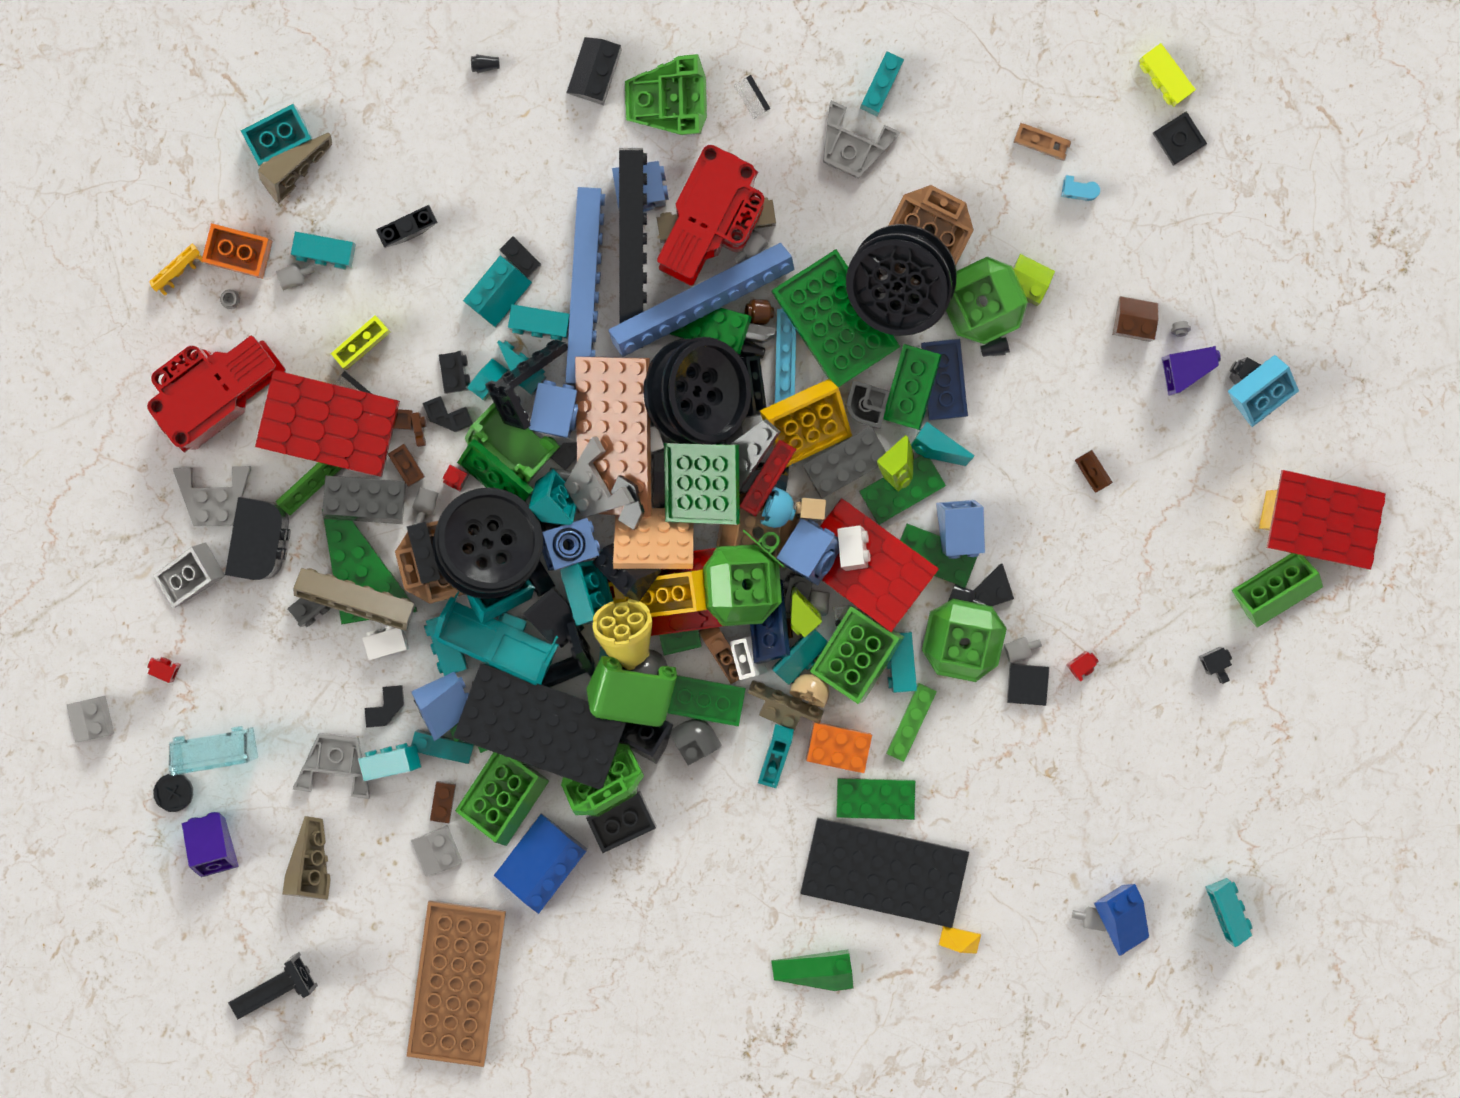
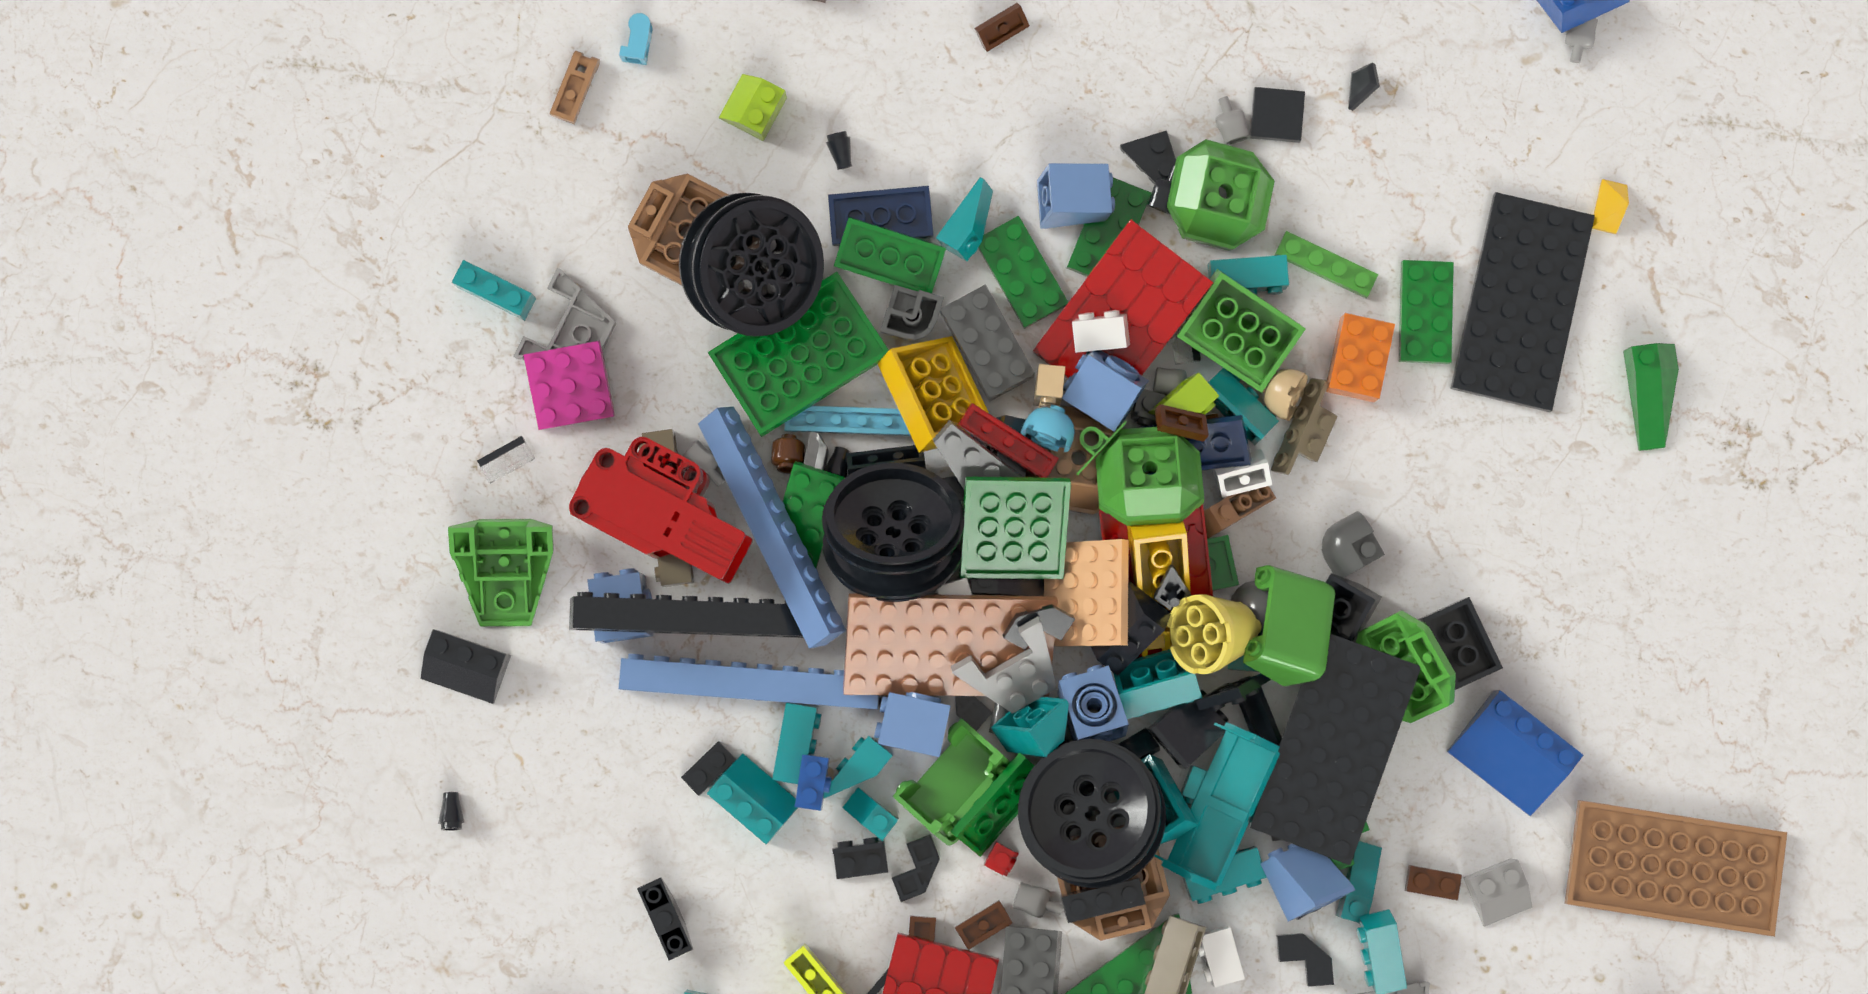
camera: 90 degrees left, 5 degrees down
(419, 424) = (929, 907): reddish brown plate -> none
(501, 797) = (1428, 803): bright green slope -> none
(503, 391) = (889, 790): black bracket -> none
(509, 334) = (812, 782): none -> blue brick
(656, 601) = (1171, 589): none -> black piece
(707, 700) = (1298, 527): green plate -> none
(776, 756) = (1370, 439): teal slope -> none
(782, 608) = (1181, 422): none -> reddish brown plate
(809, 143) = (569, 385): none -> dark pink plate
(897, 464) = (992, 275): lime slope -> none
(1004, 296) = (774, 134): bright green piece -> none
(1051, 750) = (1362, 85): none -> black piece
(1083, 665) = (1252, 44): red brick -> none

